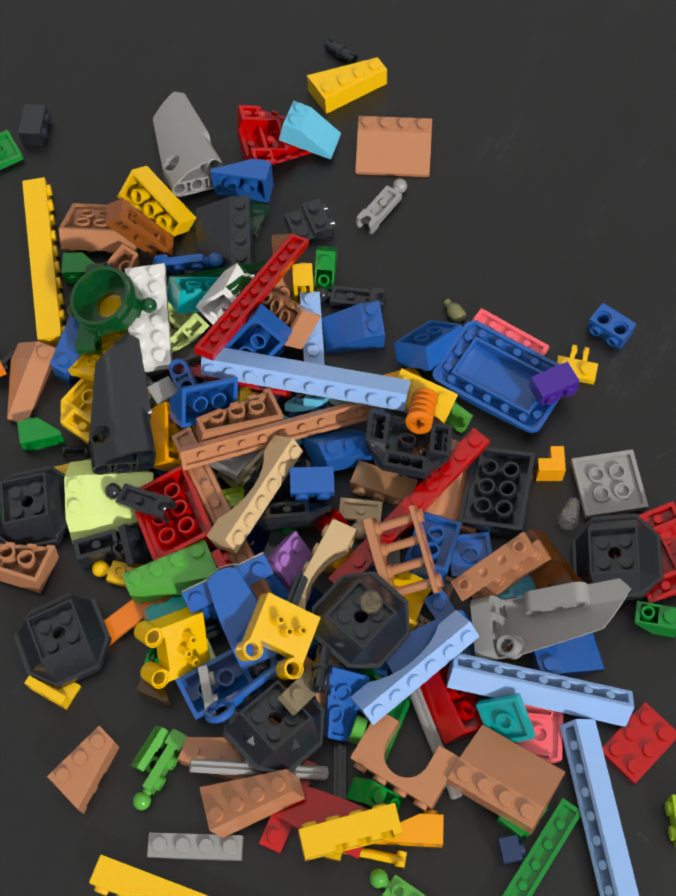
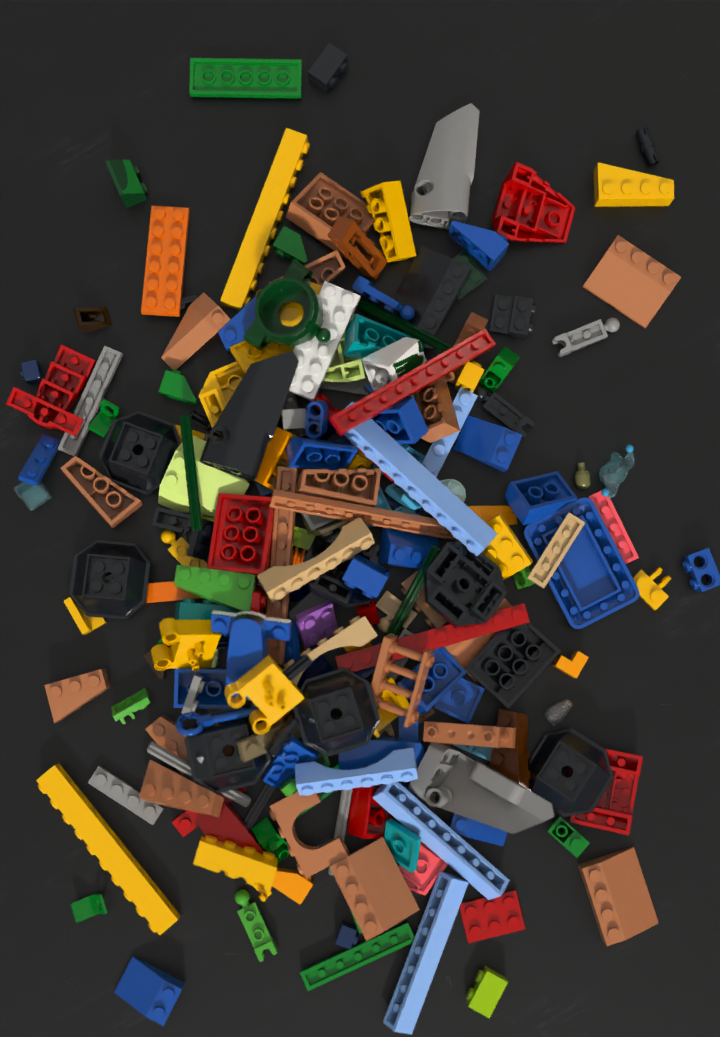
camera: 25 degrees right, 20 degrees up
(90, 487) = (191, 475): none -> dark green axle
(140, 500) = (223, 509): black plate -> none
(165, 763) = (150, 713): bright green plate -> none
(309, 131) = (565, 224): medium azure slope -> none
(366, 476) = (411, 595): none -> dark green axle
(371, 601) = (348, 710): clear smoke tile -> none
(421, 411) = (490, 565): orange piece -> none
(472, 374) = (556, 550): none -> tan plate
(480, 288) = (616, 471): none -> clear light blue piece
(554, 384) = (616, 600): dark purple brick -> none
(609, 484) = (606, 705): light grey plate -> none

